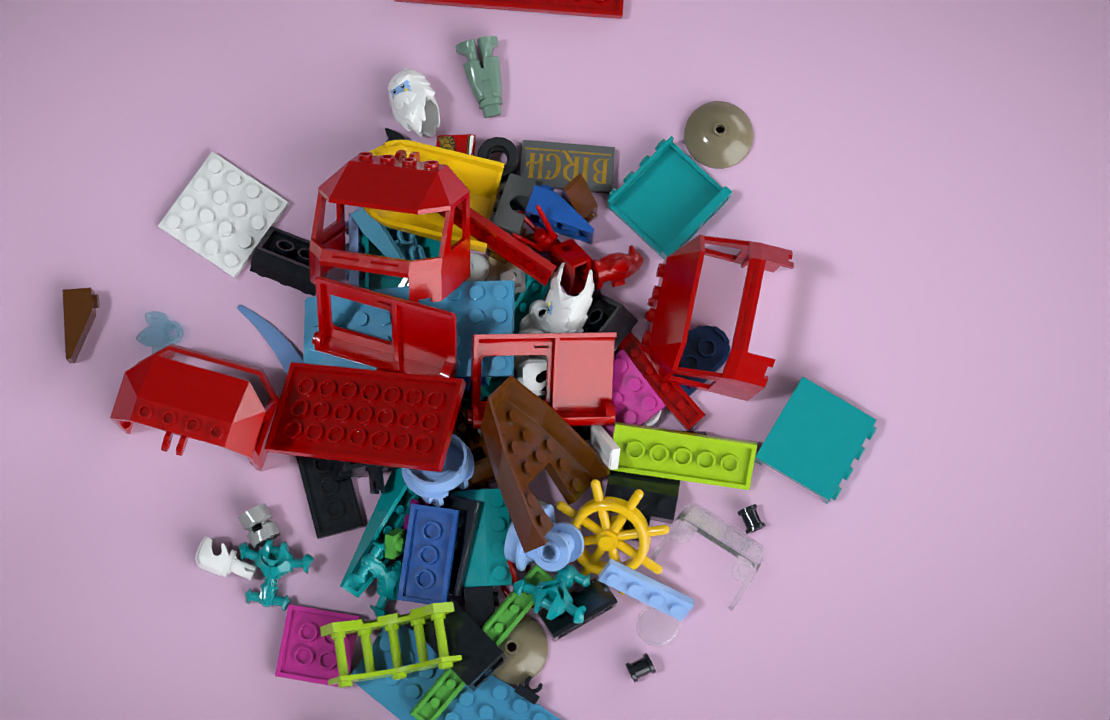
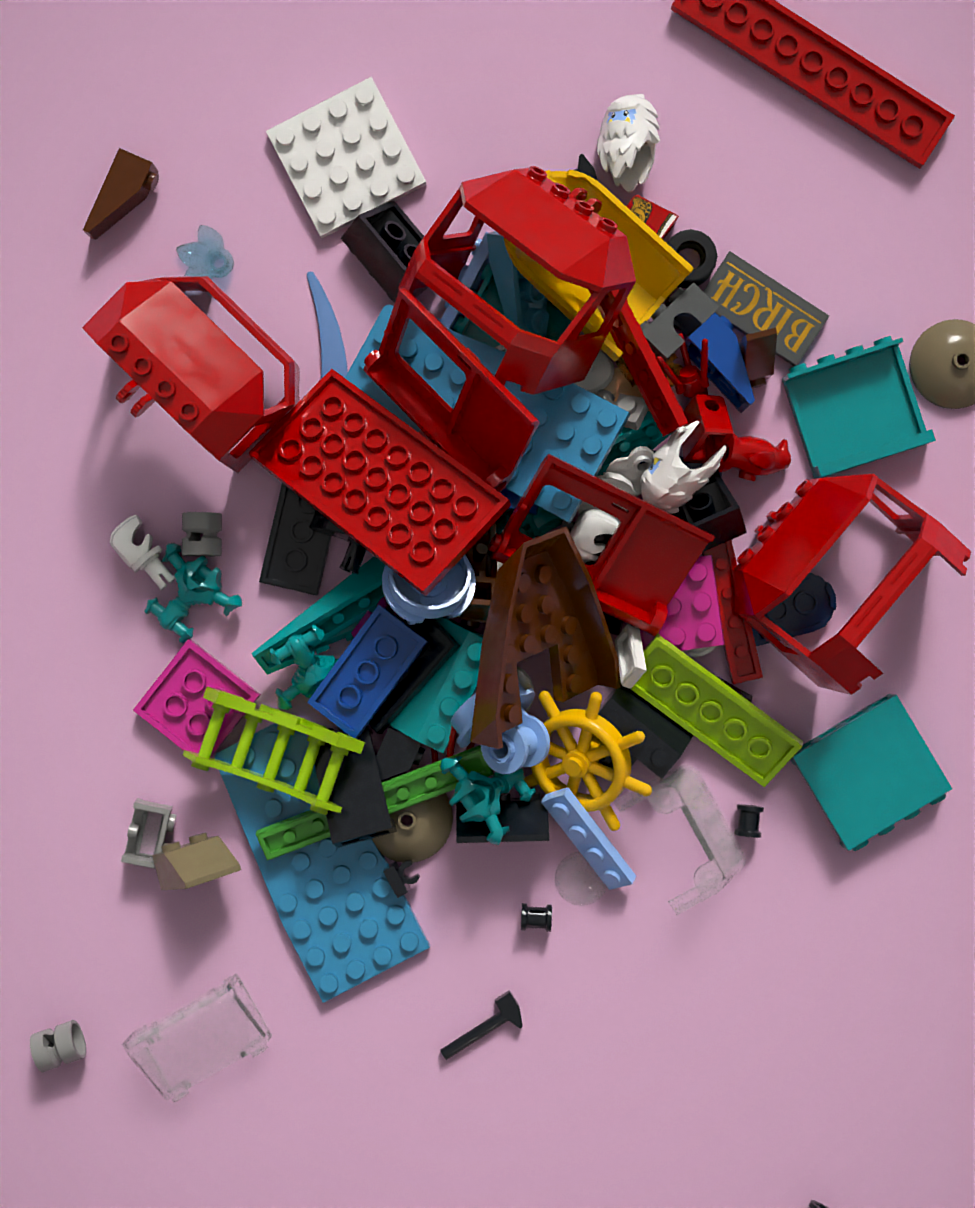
camera: 30 degrees right, 10 degrees up
(395, 543) = (338, 637): bright green plate -> none
(483, 76) = (725, 151): sand green piece -> none

